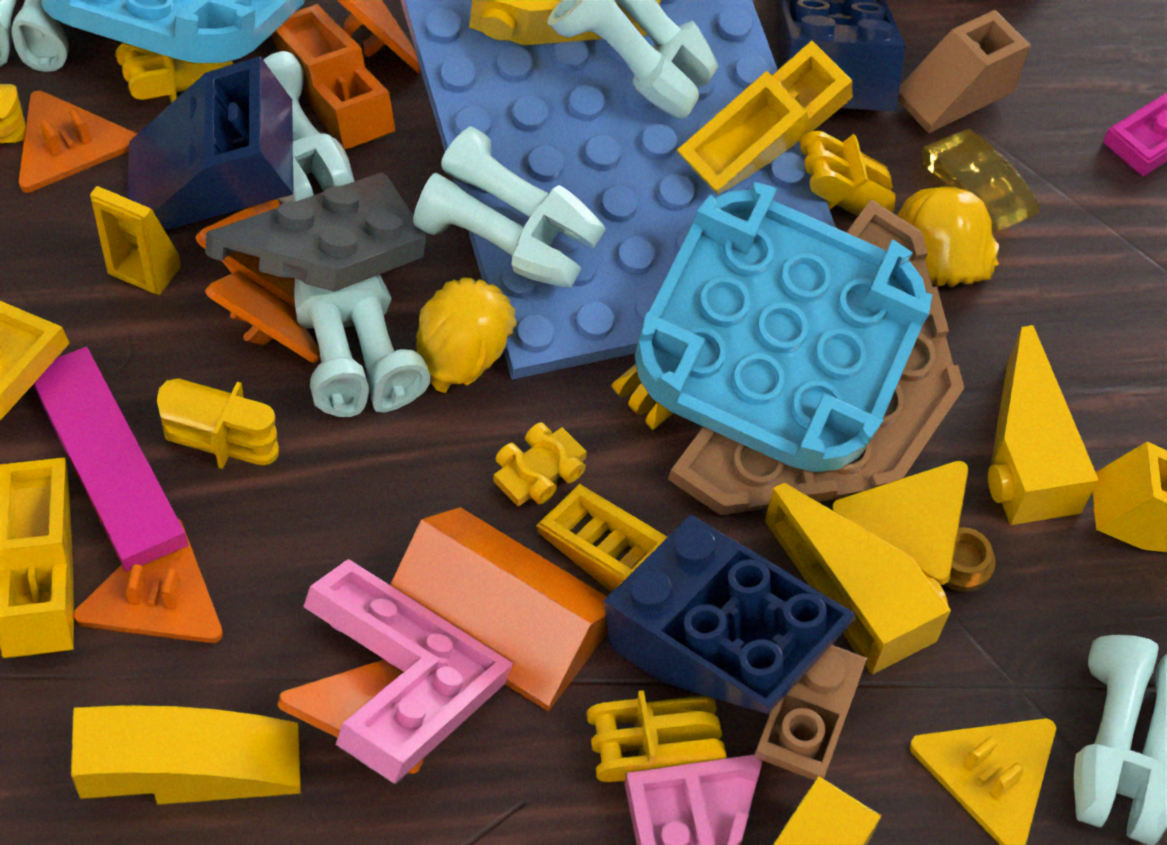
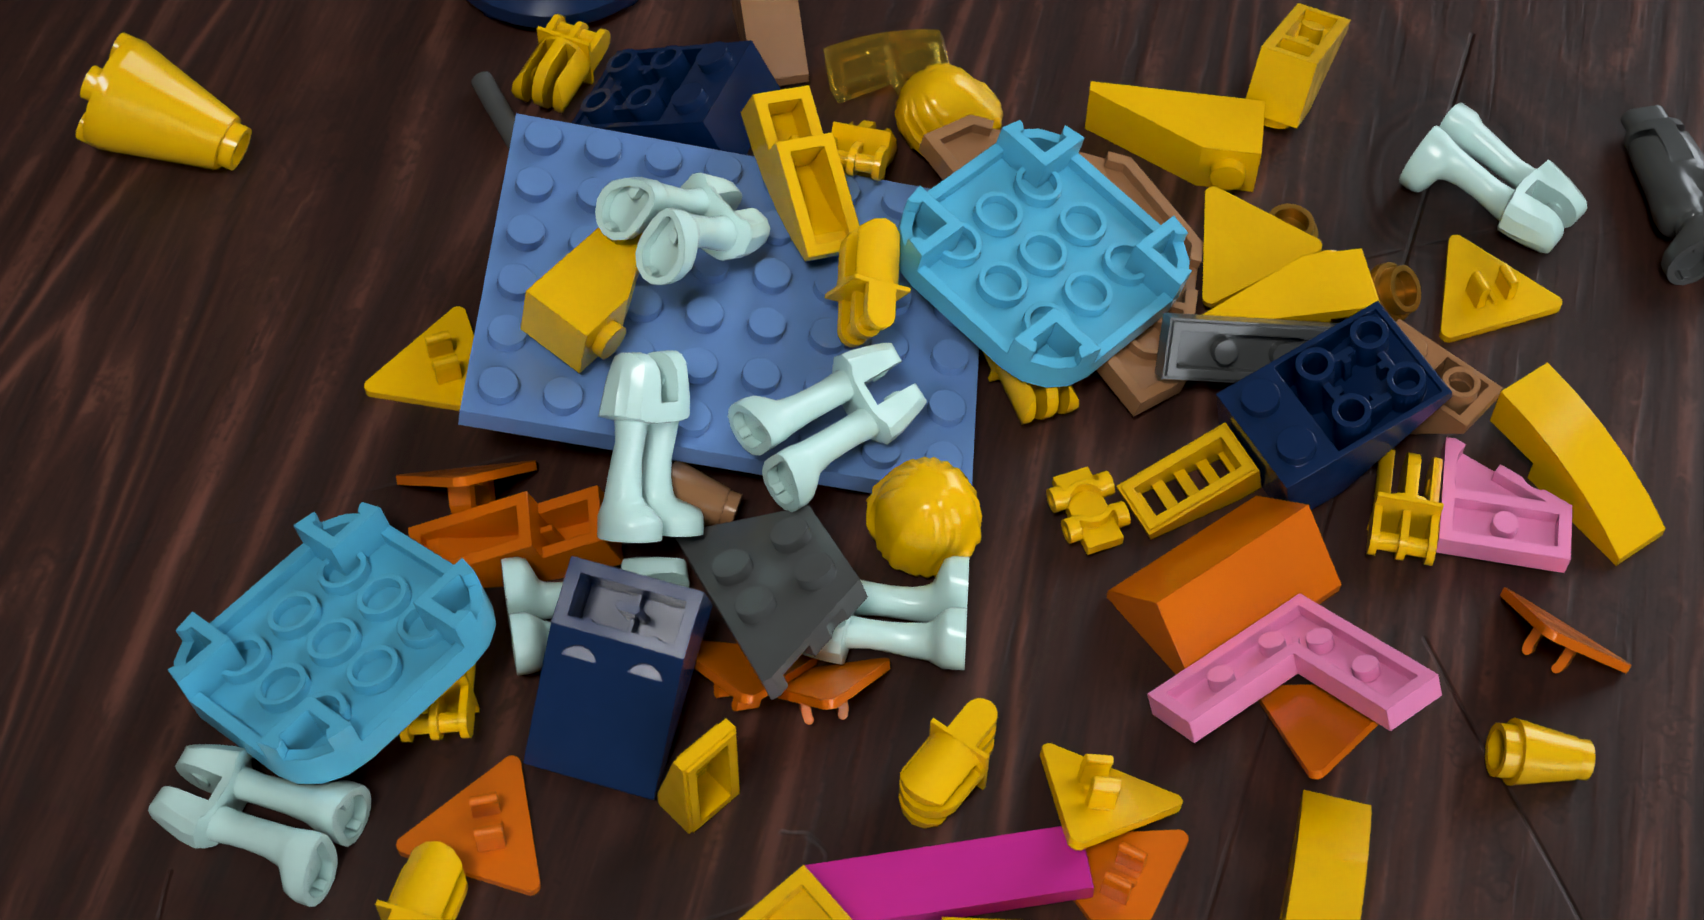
camera: 65 degrees left, 0 degrees up
(223, 550) = (1099, 800): none -> yellow piece
(379, 143) = (646, 401): none -> light aqua piece
(418, 158) = (714, 499): none -> medium nougat cone
(669, 193) = (867, 281): none -> yellow arm
(764, 517) = (1226, 346): none -> dark grey tile
(931, 667) = (1396, 289): none -> pearl gold plate

